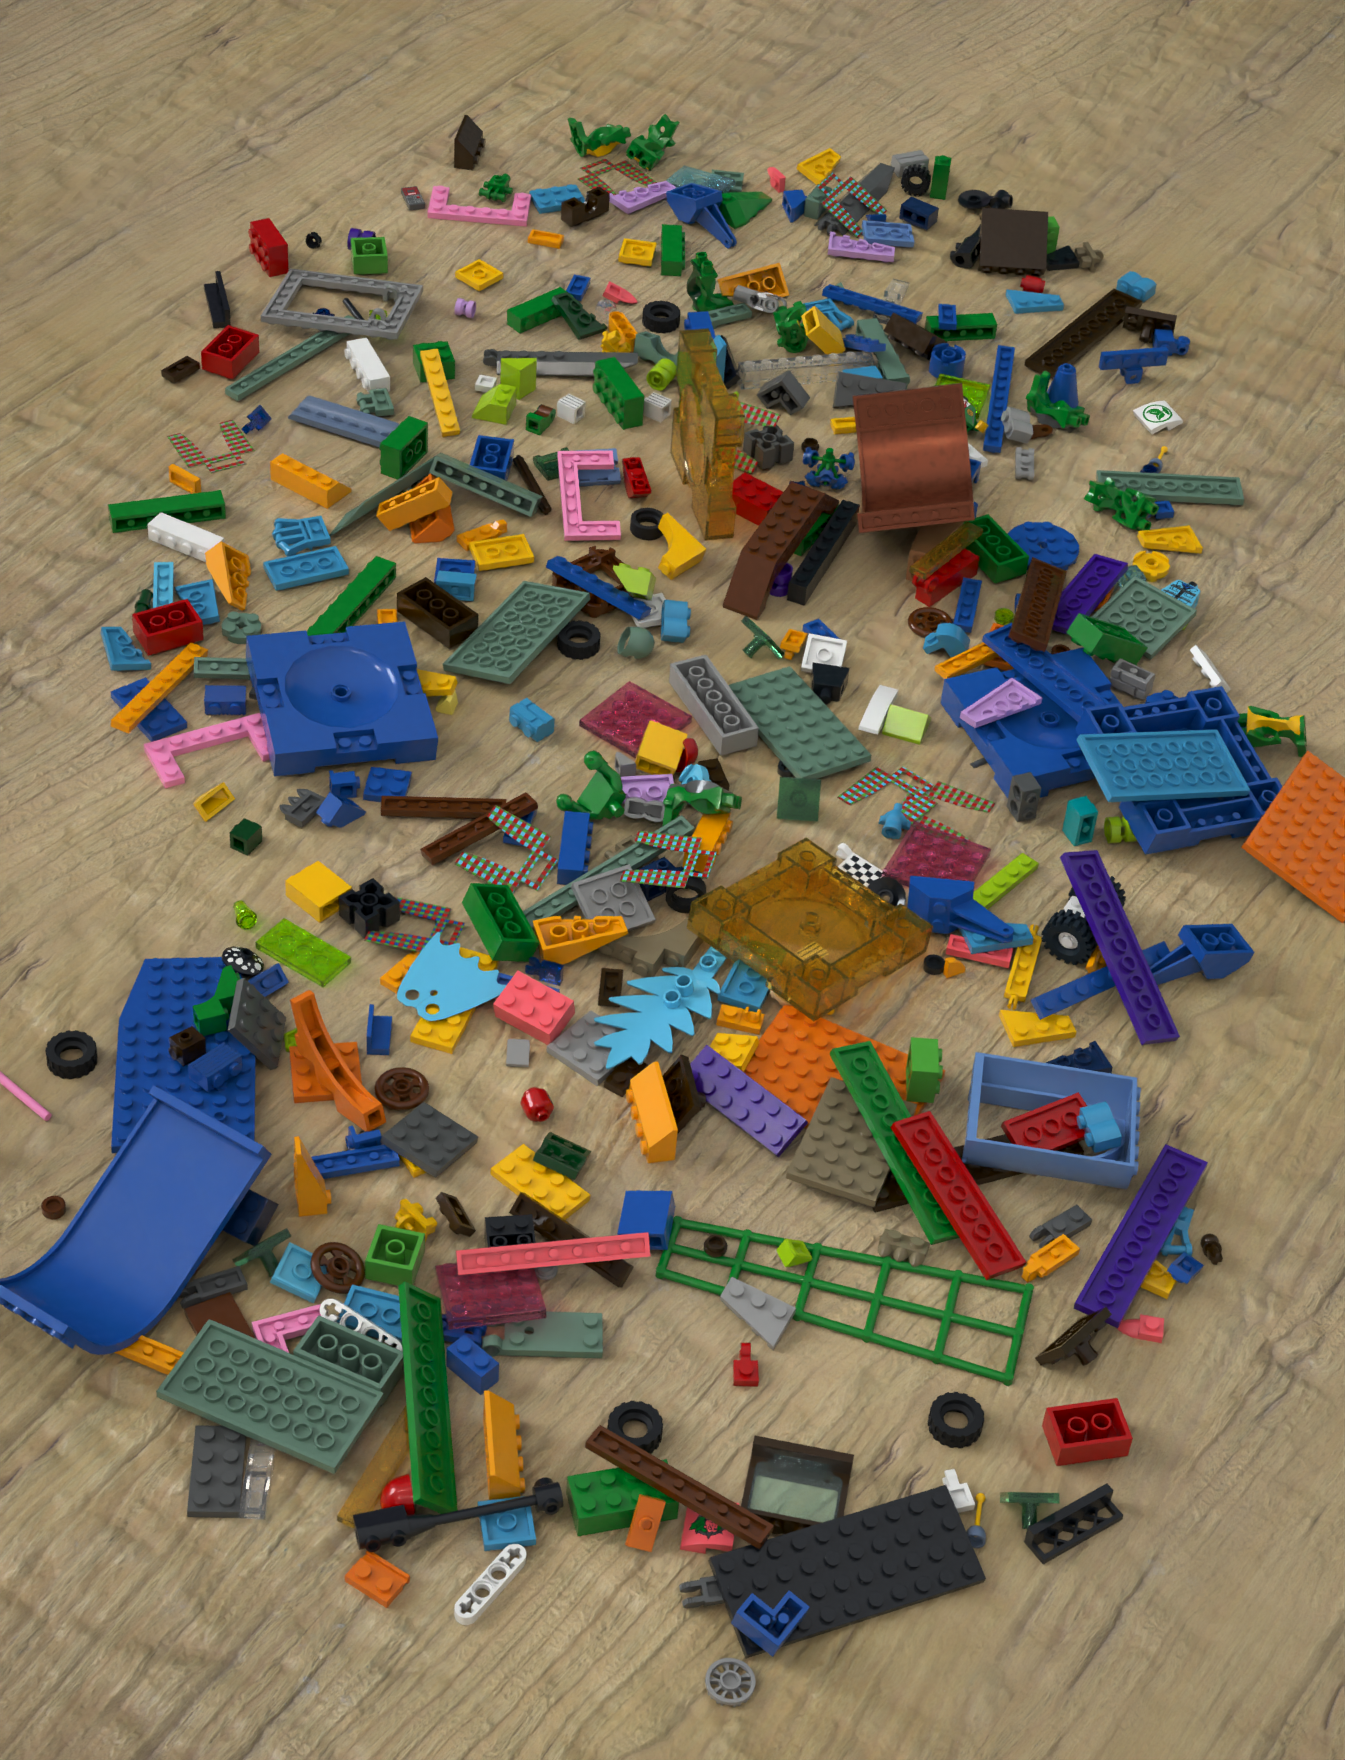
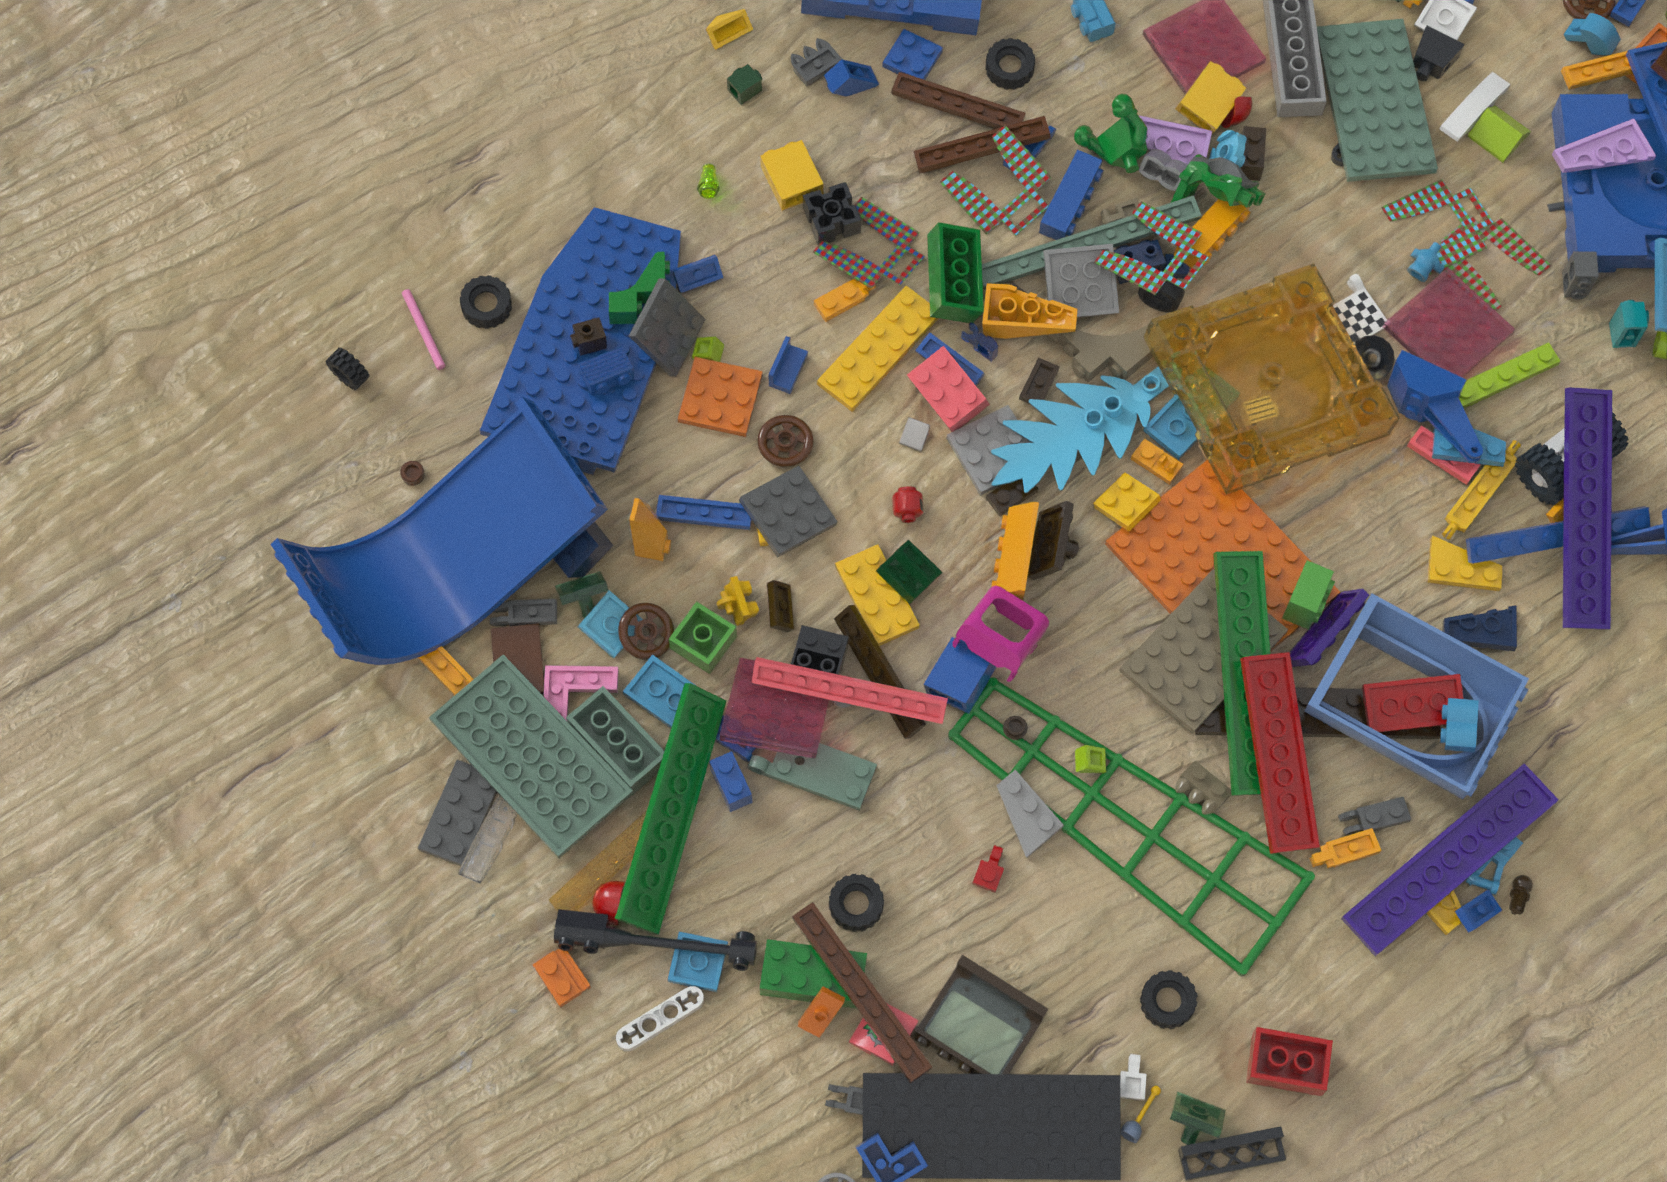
camera: 25 degrees right, 25 degrees up
(243, 961) = (683, 245): black dish -> none
(303, 952) = (751, 244): clear neon green plate -> none
(331, 1071) = (719, 407): orange arch -> none
(344, 783) = (866, 45): blue brick -> none
(362, 1140) = (727, 493): blue bracket -> none
(364, 1324) = (645, 705): white beam -> none
(455, 979) = (884, 325): medium azure piece -> none
(476, 781) = (1010, 47): none -> black tyre
(502, 1448) = (720, 885): light orange slope -> none
(624, 765) = (1167, 108): light grey slope -> none
(671, 1167) = (994, 646): none -> dark pink piece
(745, 1102) = (1115, 565): dark purple plate -> none
(798, 799) = (1332, 205): clear green tile -> none
(933, 964) = (1388, 455): black tile -> none
(951, 1086) = (1331, 622): none -> dark purple plate
(953, 967) = (1406, 467): light orange tile -> none
(1076, 1340) = (1325, 955): dark brown plate -> none
(1144, 1328) = (1406, 959): coral plate -> none

